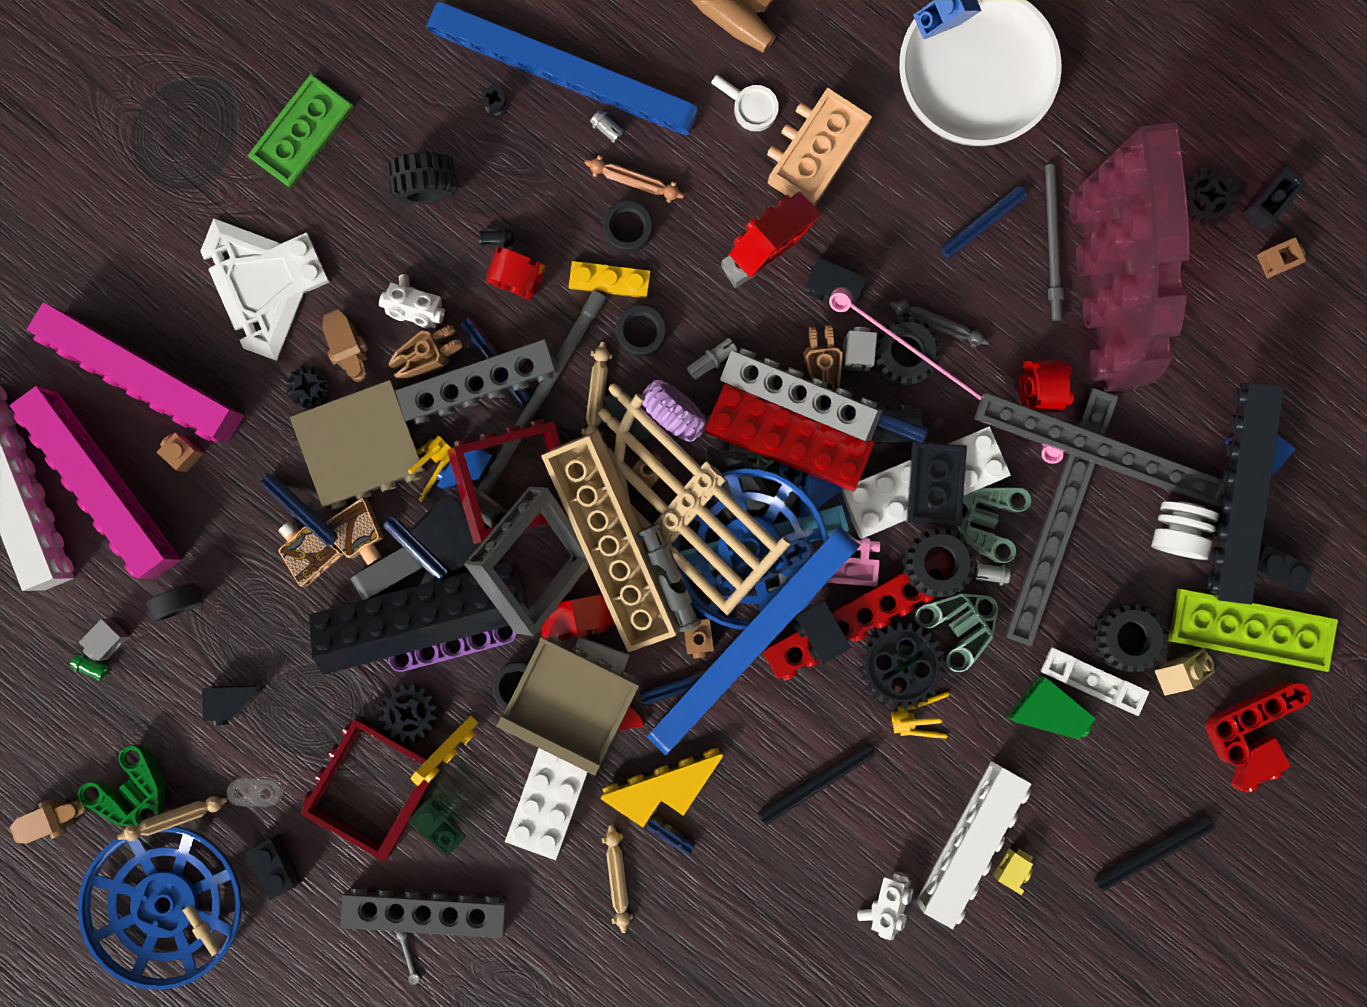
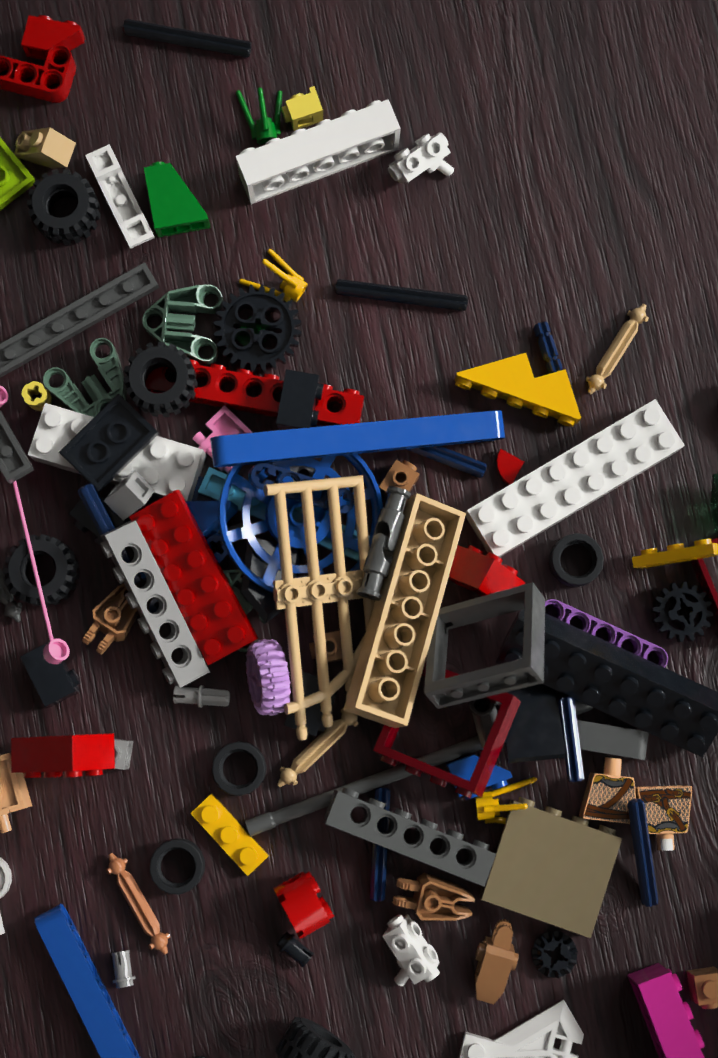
camera: 140 degrees left, 5 degrees down
(569, 704) = (547, 508): dark tan panel -> none
(859, 350) = (76, 602): light grey brick -> none
(887, 457) = (129, 495): none -> light grey brick
(993, 573) = (124, 340): light grey pin -> none
(1017, 471) = (33, 389): none -> light yellow bush
(1029, 829) = (265, 128): none -> green plant

